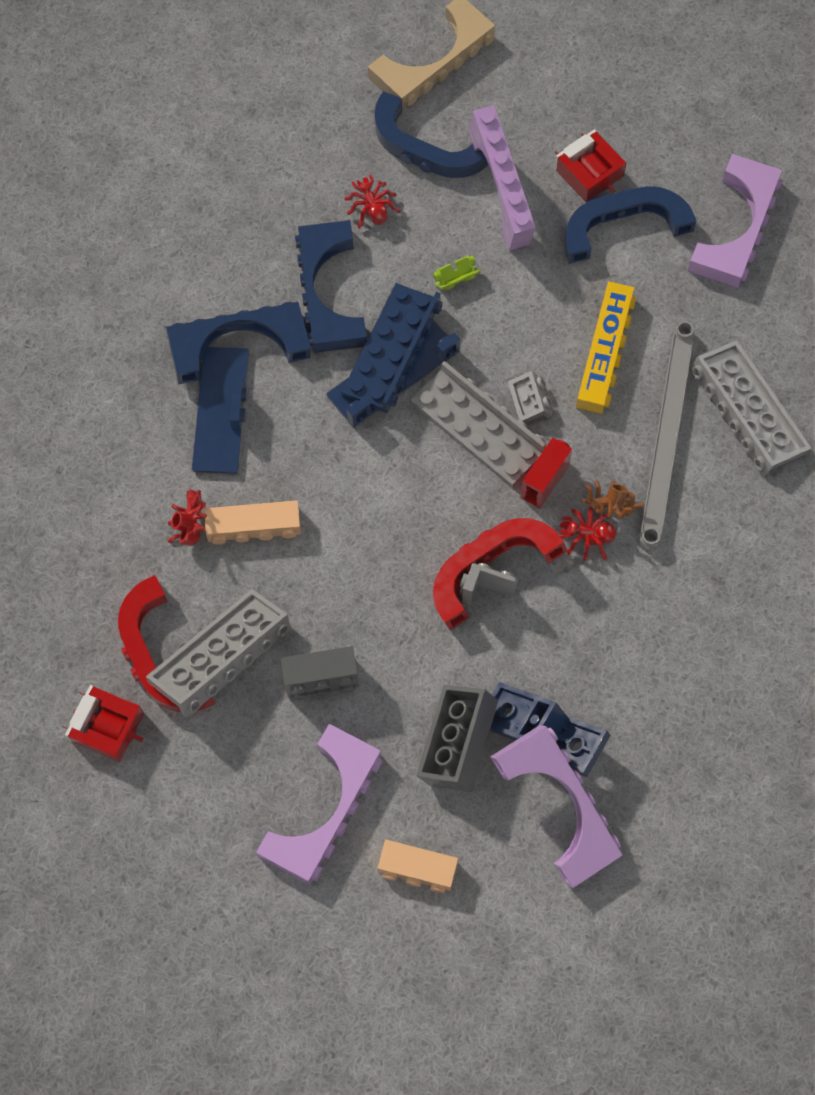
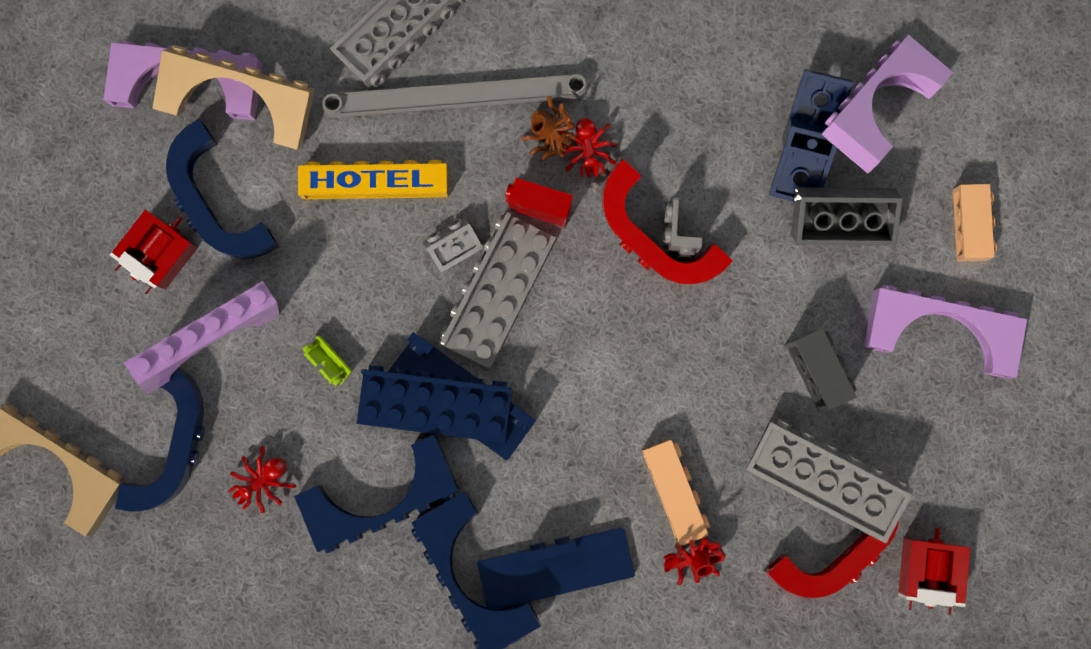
camera: 110 degrees left, 15 degrees up
(695, 289) = (287, 101): none -> tan arch

